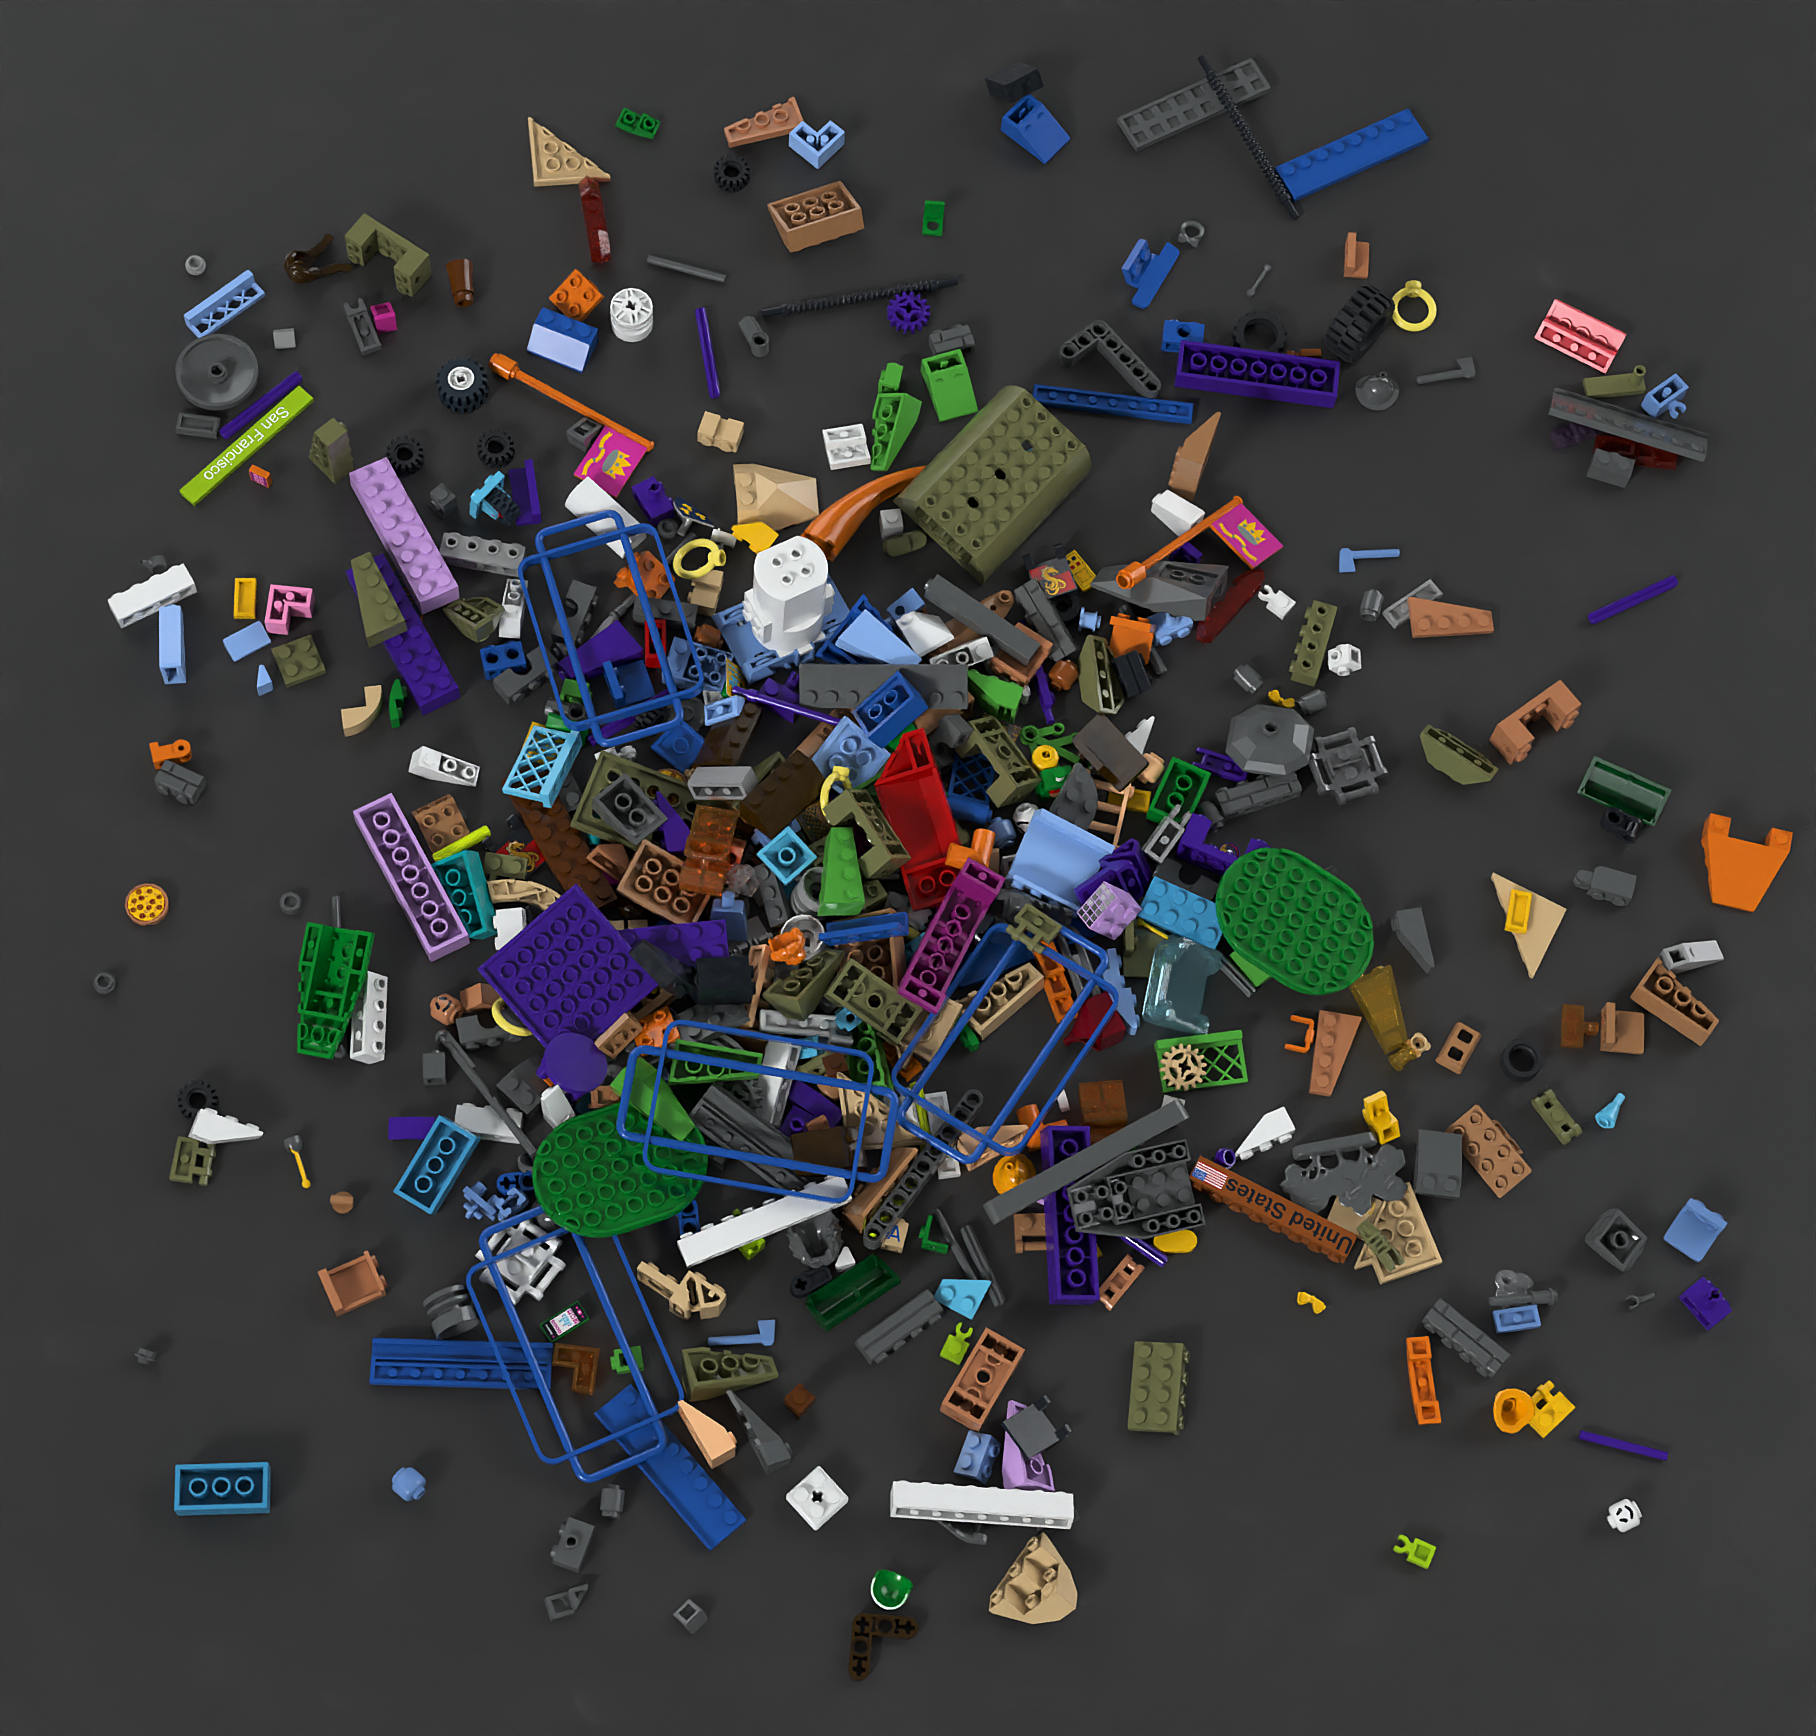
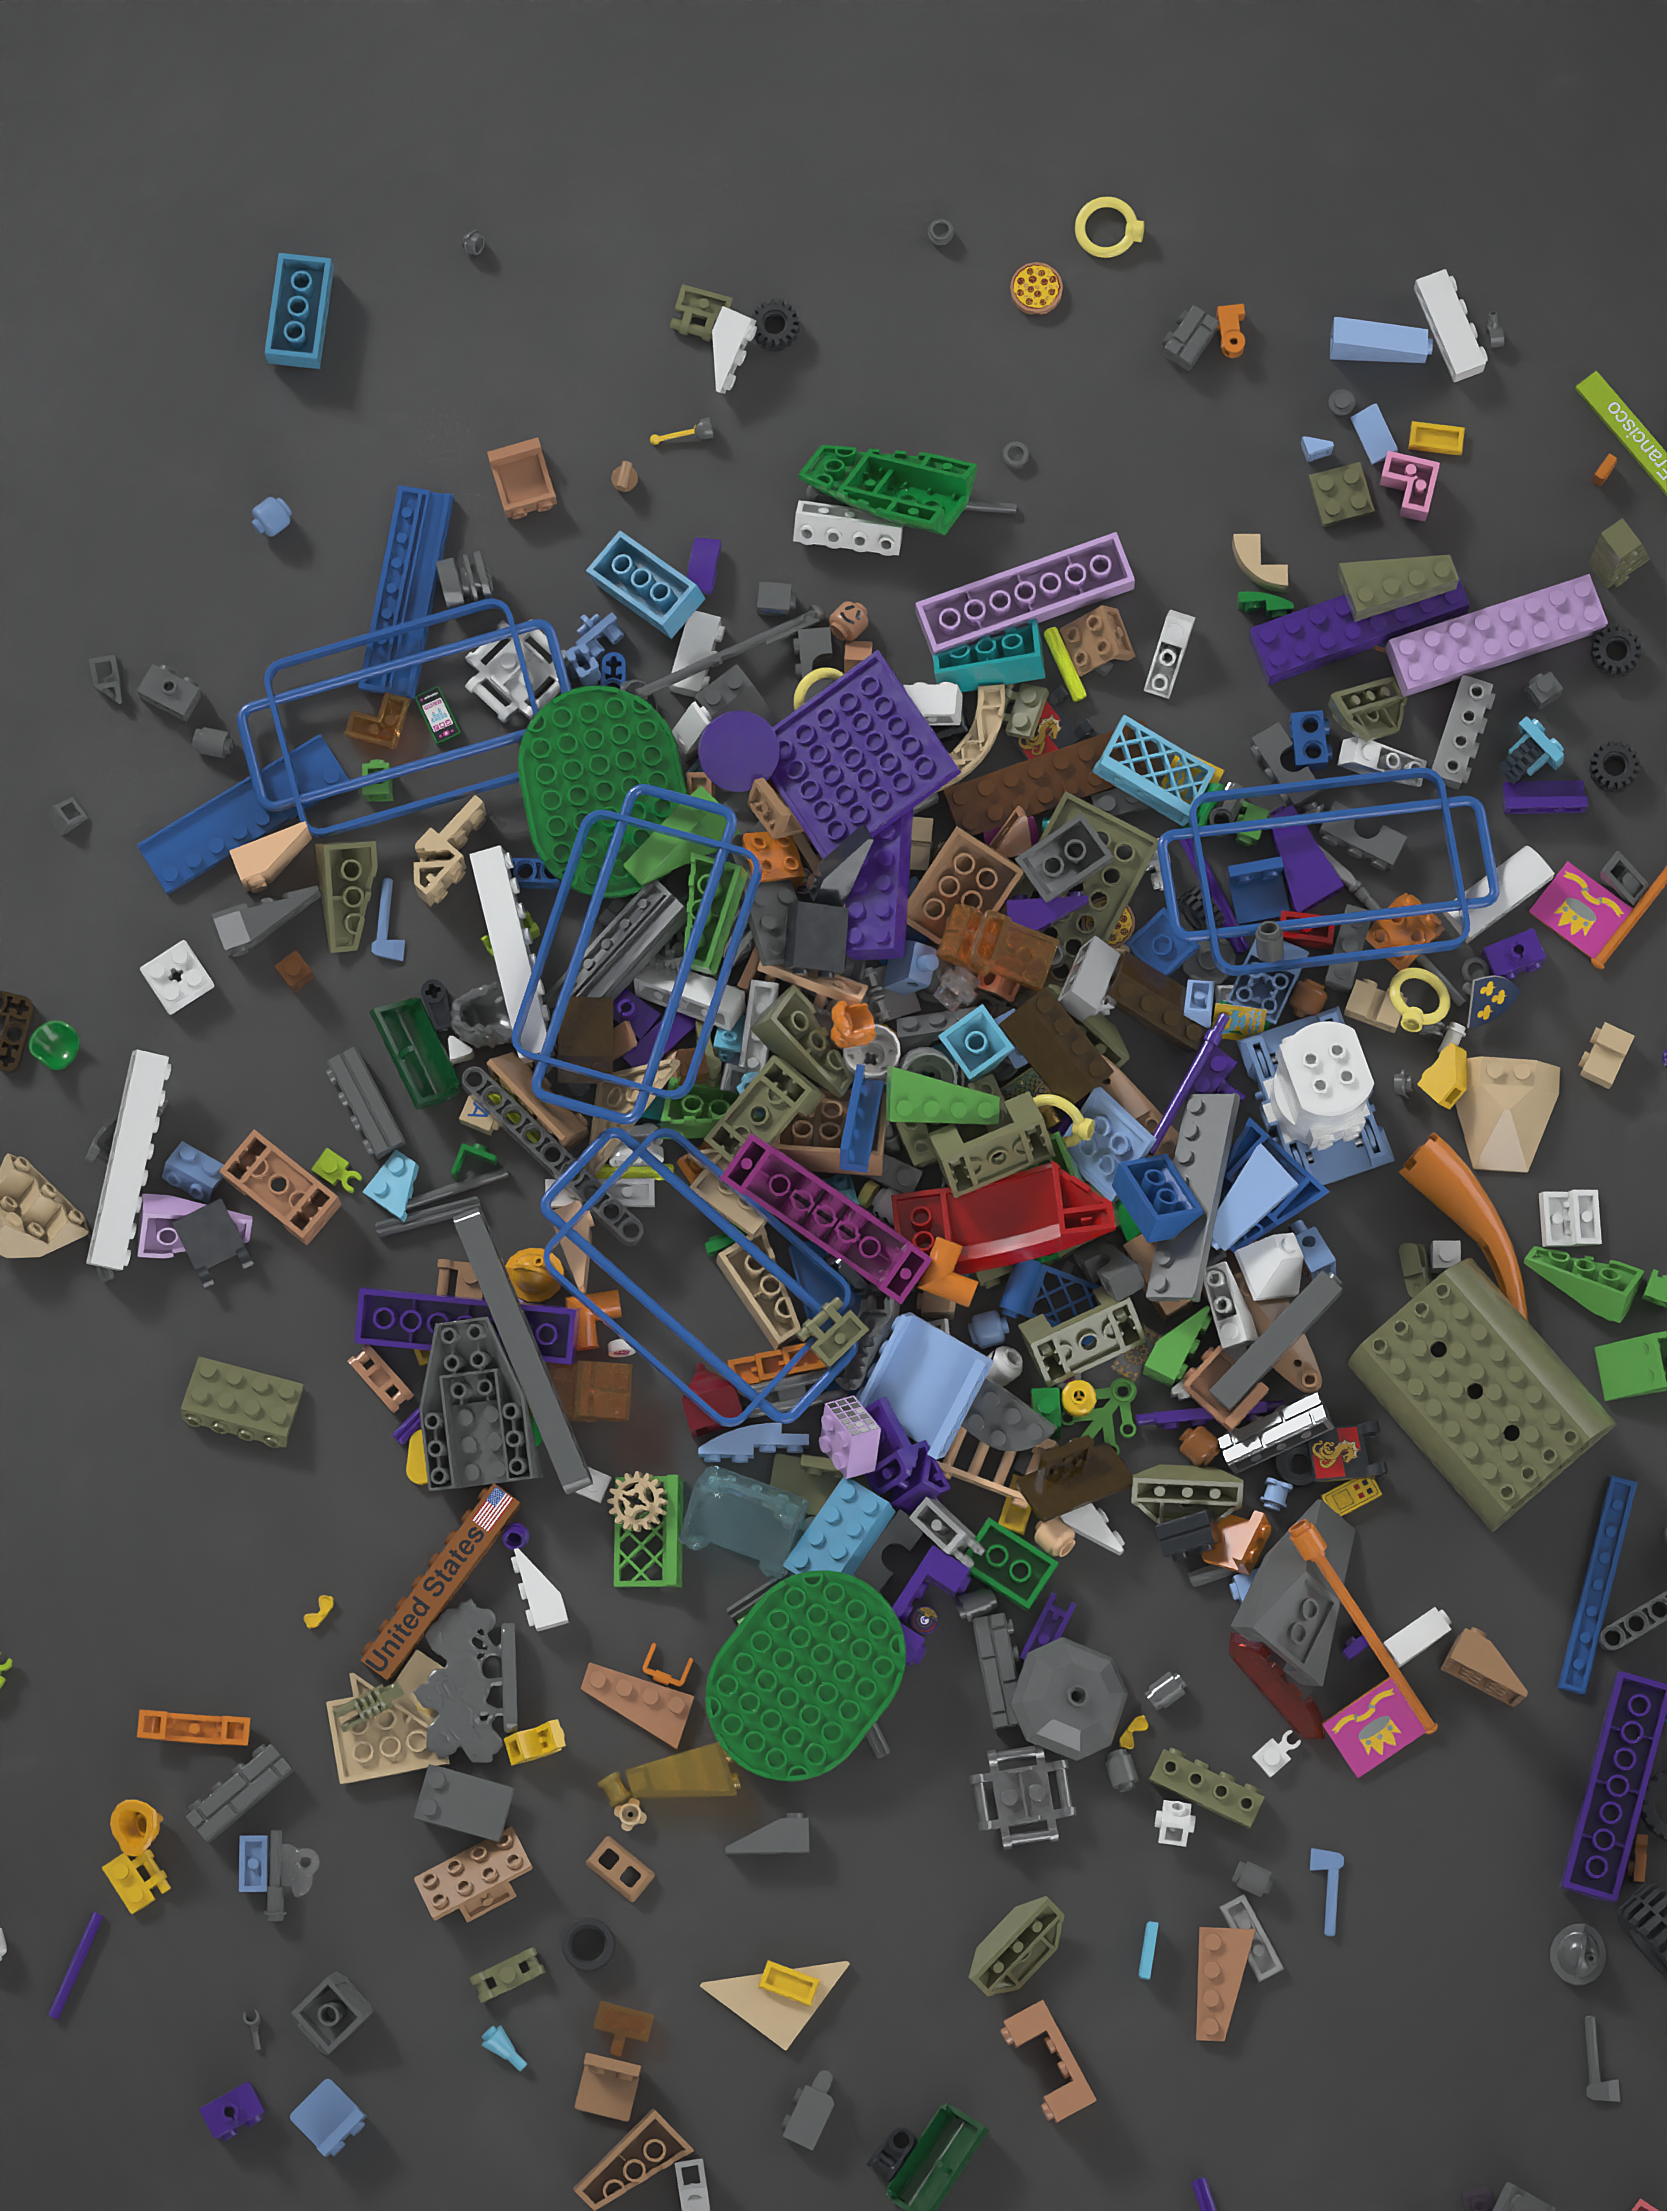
camera: 110 degrees right, 10 degrees up
(92, 836) = (1133, 232): none -> light yellow piece
(222, 668) = (1341, 402): none -> dark grey plate
(677, 654) = (1269, 942): none -> dark grey brick
(1438, 668) = (1148, 1950): none -> medium azure tile

